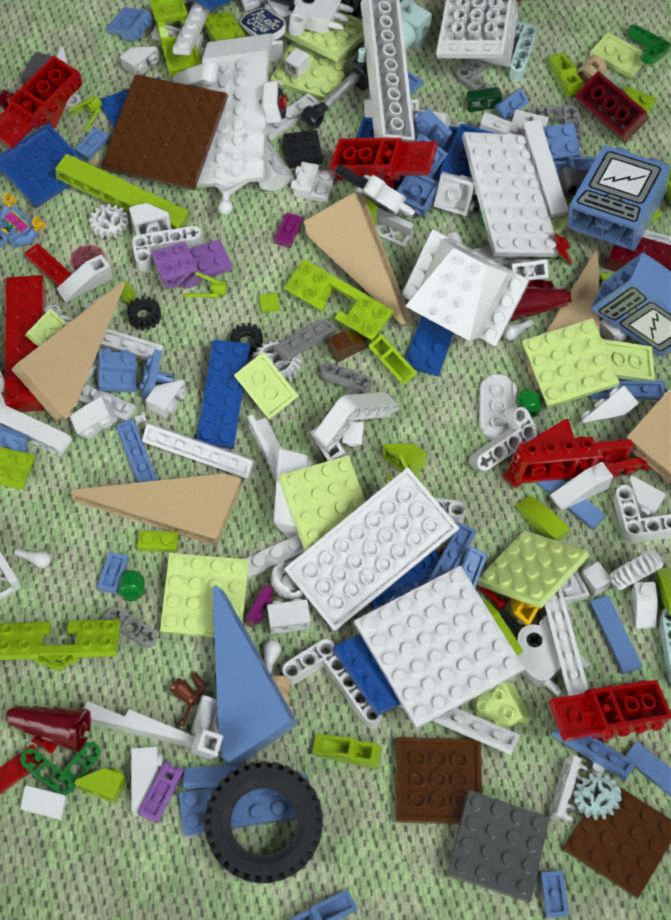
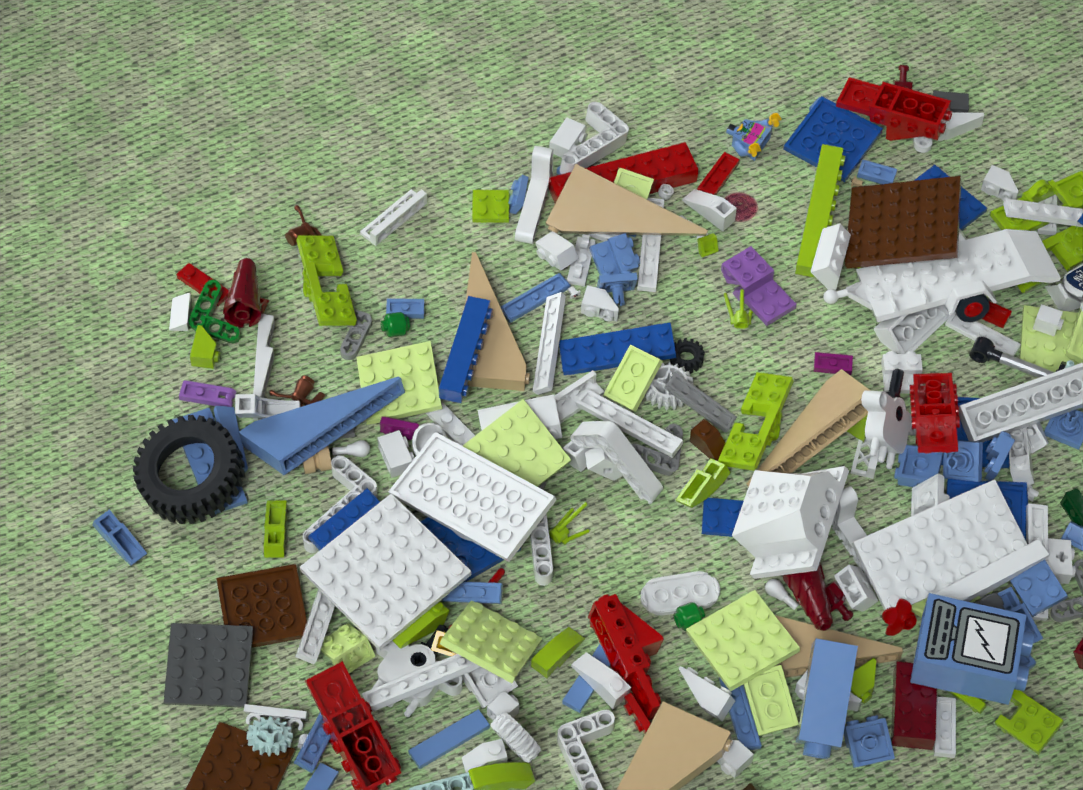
camera: 75 degrees right, 5 degrees down
(38, 558) = (405, 251): white piece -> none
(91, 105) = (926, 159): lime plant -> none
(108, 221) = (786, 209): white gear -> none
(130, 23) = (1044, 165): medium blue plate -> none
(144, 322) = (689, 273): black tyre -> none
(144, 770) = (222, 374): white slope -> none
(148, 219) = (788, 237): white slope -> none
(149, 242) = (771, 250): white beam -> none
(158, 541) = (446, 334): lime plate -> none
(181, 194) = (830, 255): none -> white slope
(193, 521) = (465, 349): none -> blue brick
(199, 76) = (976, 228): white beam -> none
(269, 302) = (739, 367): lime tile -> none
(302, 147) = (942, 353): black brick -> none
(313, 401) = (629, 423): none -> white plate
(413, 455) = (592, 518): lime slope -> none
(454, 551) = (512, 581): medium blue tile -> none
(504, 450) = (633, 596): white beam -> none
(554, 894) = (173, 720): medium blue plate -> none
(647, 497) = (608, 743): white slope -> none

